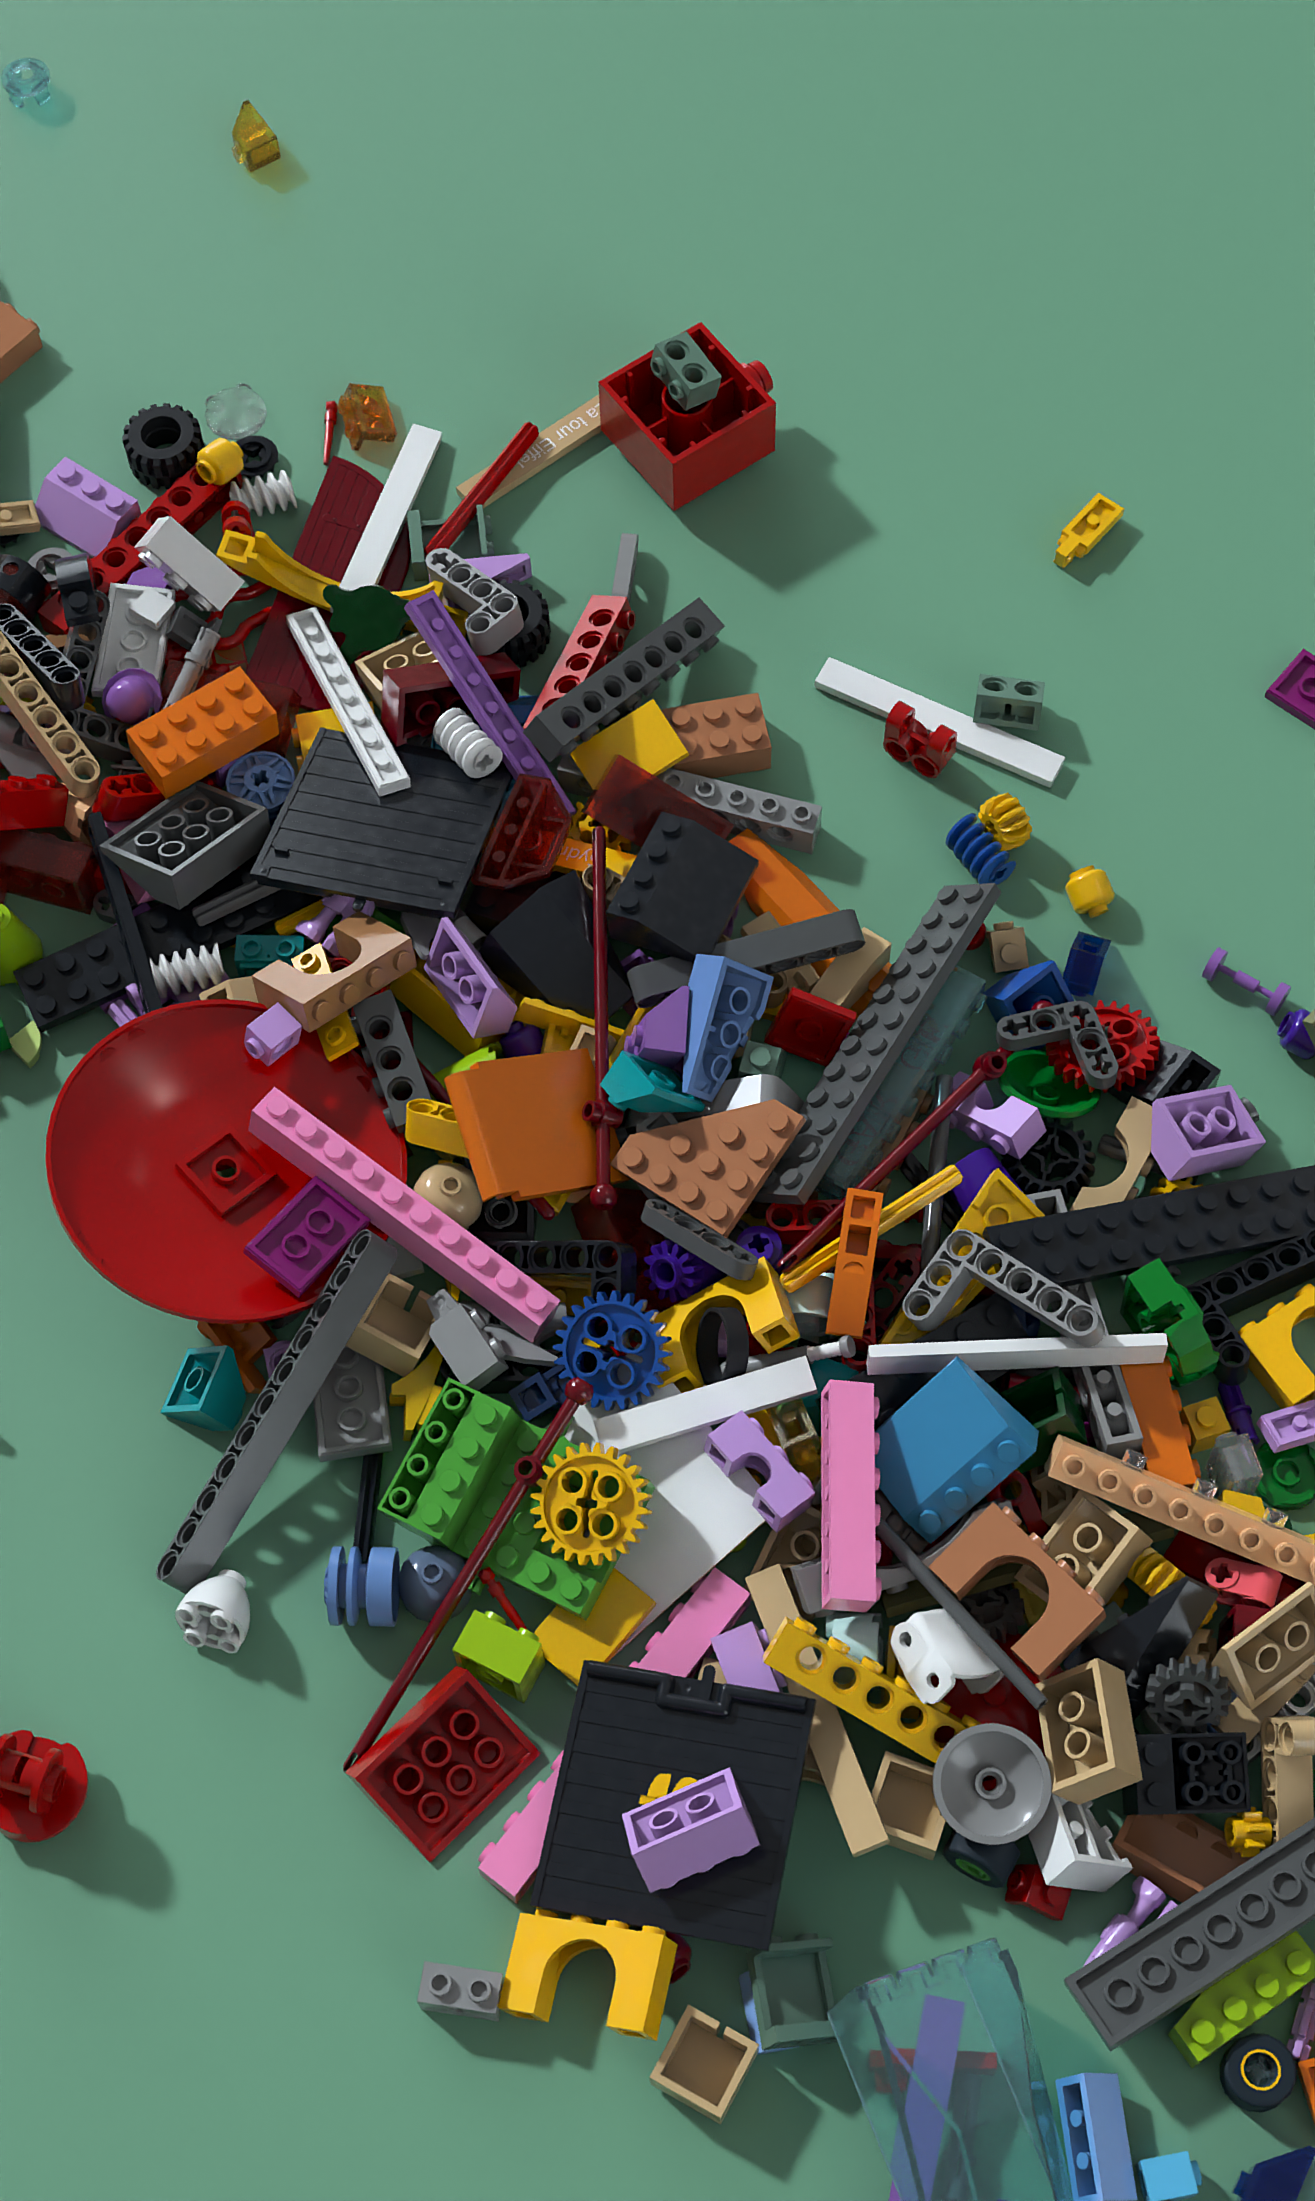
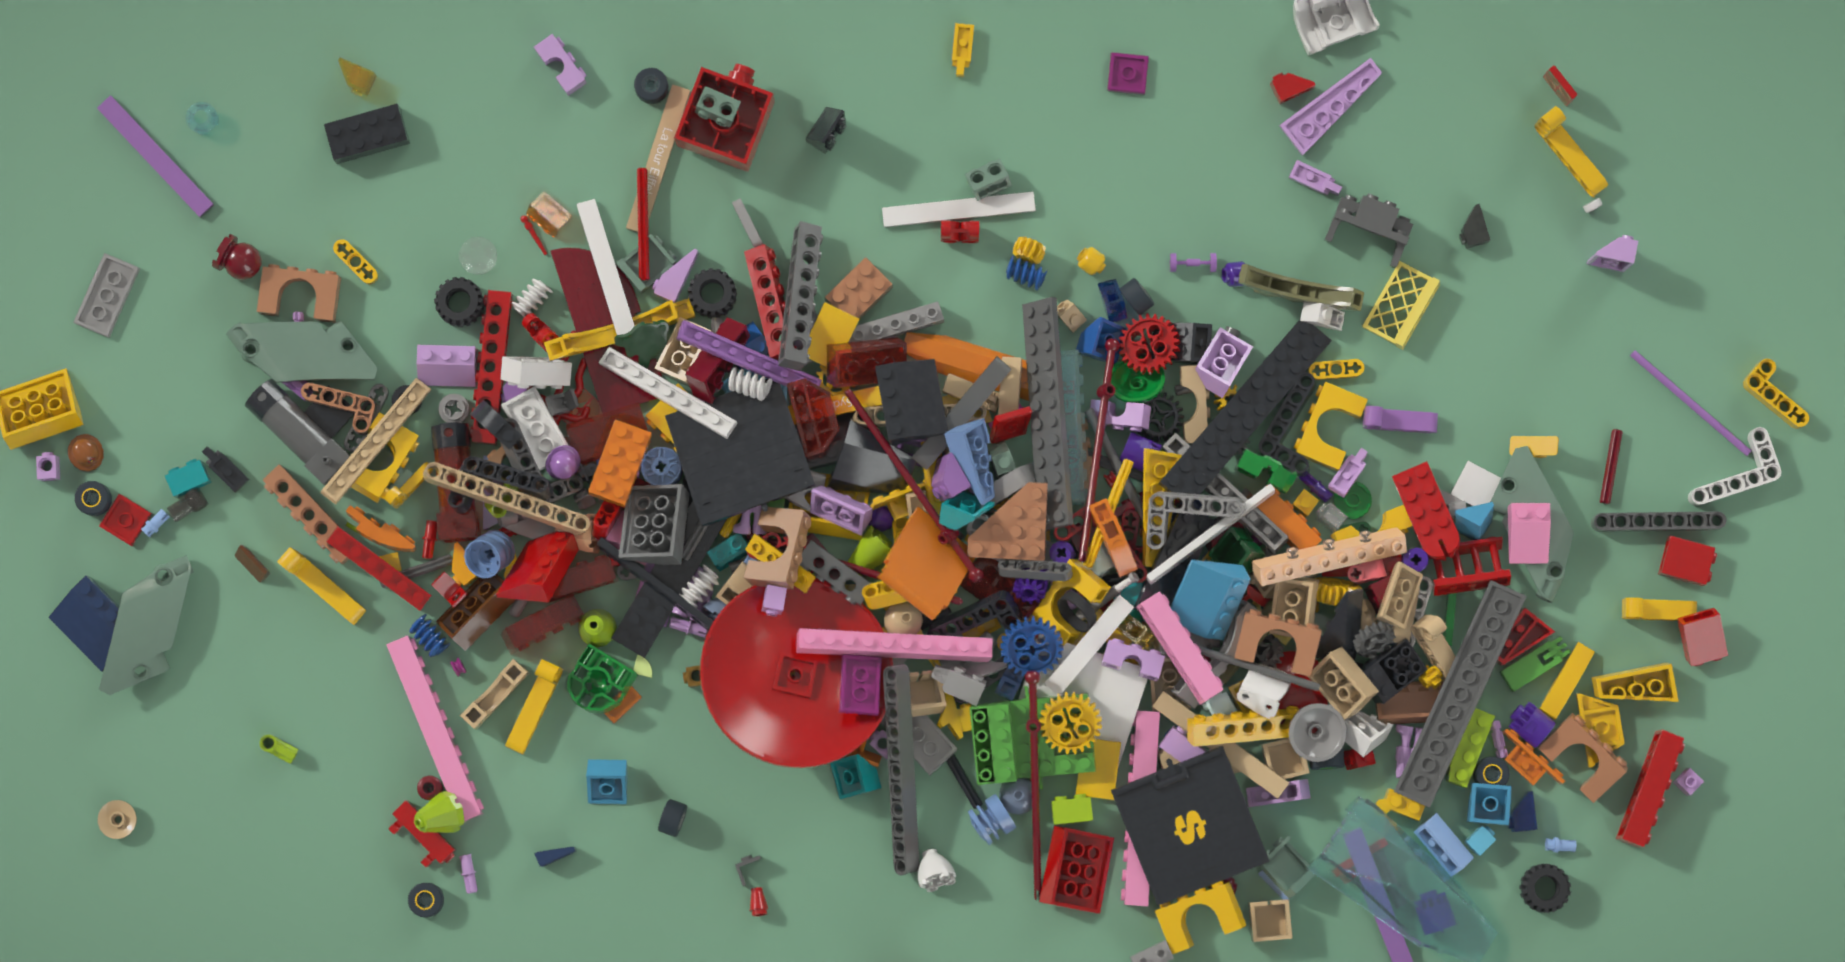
camera: 35 degrees left, 20 degrees up
(82, 344) = (342, 255): none -> yellow beam
(152, 608) = (534, 406): white tile -> none
(194, 665) = (586, 434): light grey pin -> none
(211, 202) = (366, 133): none -> black brick
(219, 461) = (503, 299): yellow head -> none
(260, 446) = (500, 269): black gear -> none
(493, 608) = (690, 298): light grey beam -> none
(496, 1590) = (1050, 783): red piece -> none
(522, 242) = (552, 50): none -> lavender arch
(620, 342) = (651, 92): none -> black wheel
(690, 1830) = (1206, 834): lavender slope -> none
(823, 514) = (826, 129): none -> black slope
(886, 1869) = (1294, 791): none -> lavender slope
(1062, 2019) = (1400, 805): none -> yellow hinge
(1065, 1028) = (1129, 350): dark grey beam -> none
(1127, 973) = (1137, 296): none -> black wheel
(1222, 2121) = (1489, 804): none -> dark azure slope

